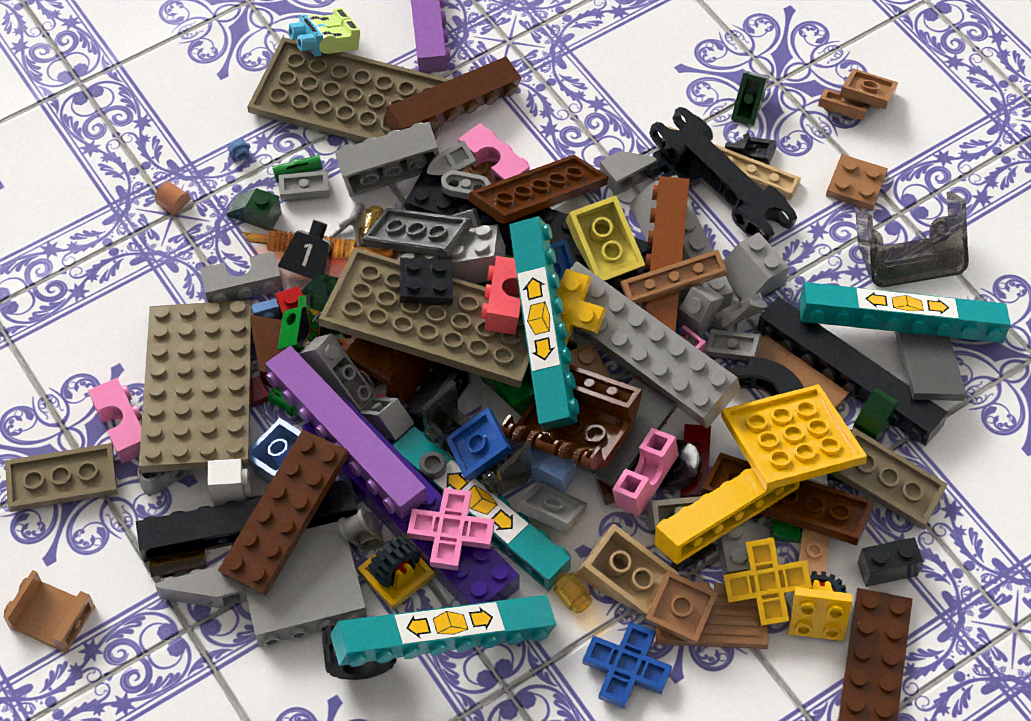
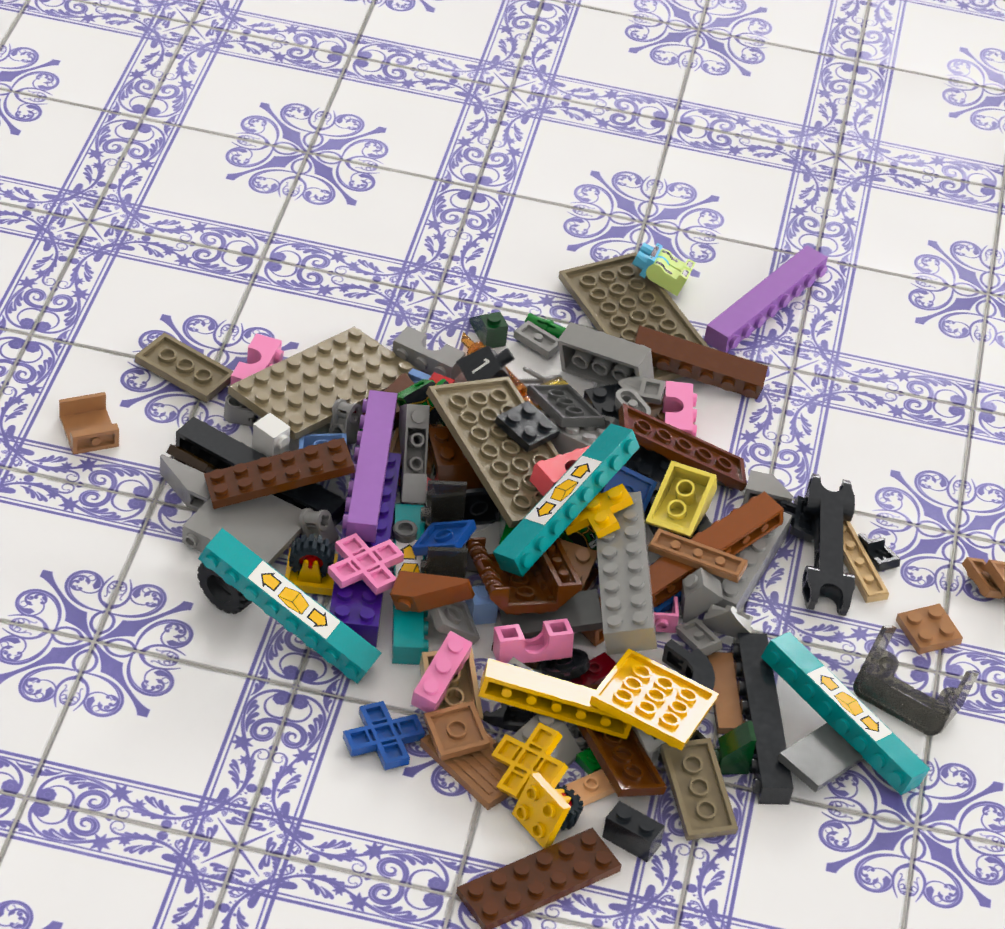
camera: 40 degrees right, 15 degrees down
(171, 197) = (446, 283): nougat brick -> none
(238, 149) = (523, 290): medium blue plate -> none
(261, 404) = (346, 420): none -> light grey piece
(524, 511) = (428, 591): none -> dark orange slope
(572, 592) = (403, 671): clear yellow brick -> none
(631, 588) = (441, 671): none -> bright pink arch
(750, 97) = (918, 521): dark green slope -> none
(755, 268) = (776, 610): light grey slope -> none

